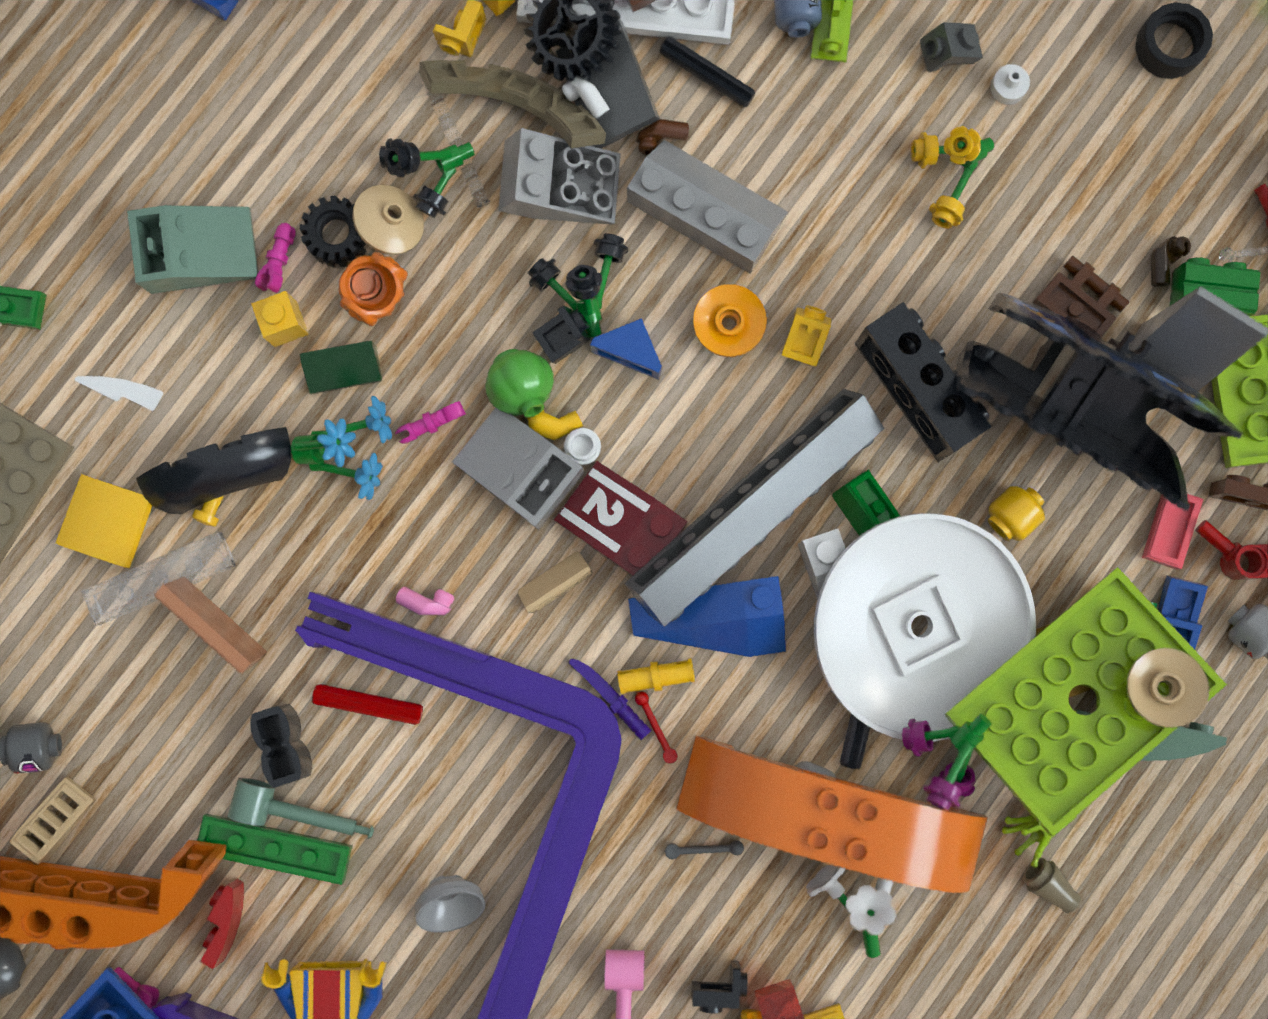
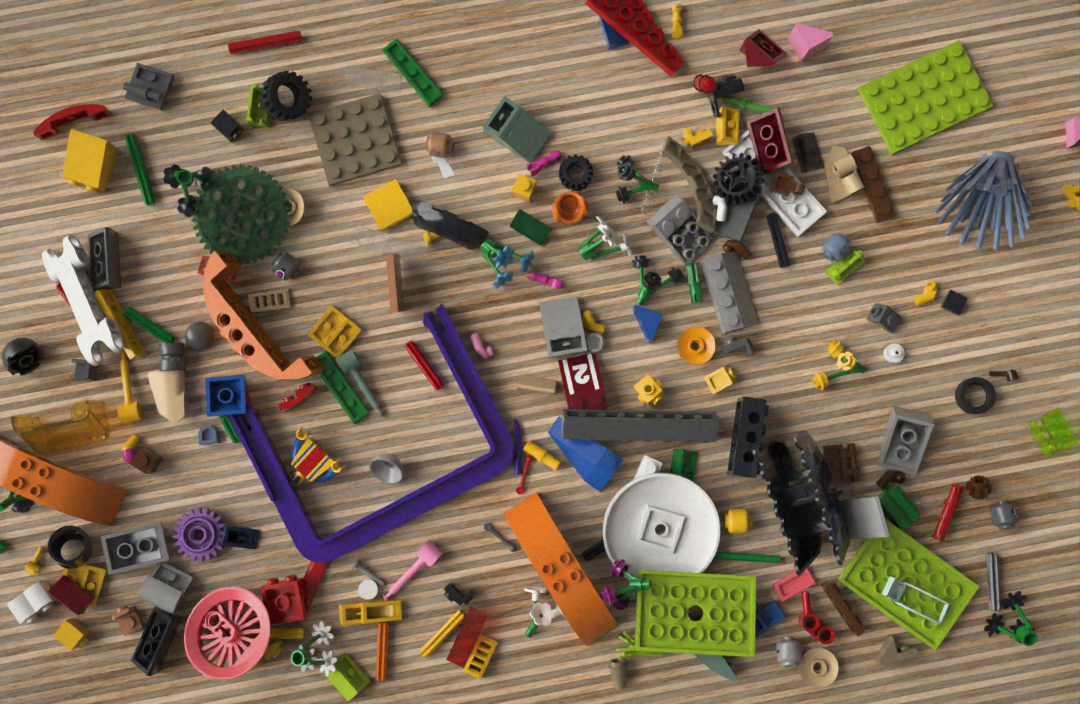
camera: 40 degrees right, 0 degrees up
(100, 367) = (439, 145): none -> medium nougat head
(191, 776) = (334, 332): none -> yellow slope
(278, 736) = (377, 355): black brick -> none
(382, 231) = (593, 186): tan dish -> none
(453, 321) = (589, 248): none -> plant
(519, 382) = (592, 296): bright green plant -> none
(563, 334) = (626, 292): black bracket -> none
(646, 236) = (694, 283): none -> green axle
(725, 443) = (650, 391): none -> yellow brick
(779, 271) = (733, 344): none -> dark grey bracket
(1076, 550) = (747, 557): none -> green bar
(1138, 187) = (905, 440): none -> light grey slope
(1186, 685) = (739, 640): tan dish -> none

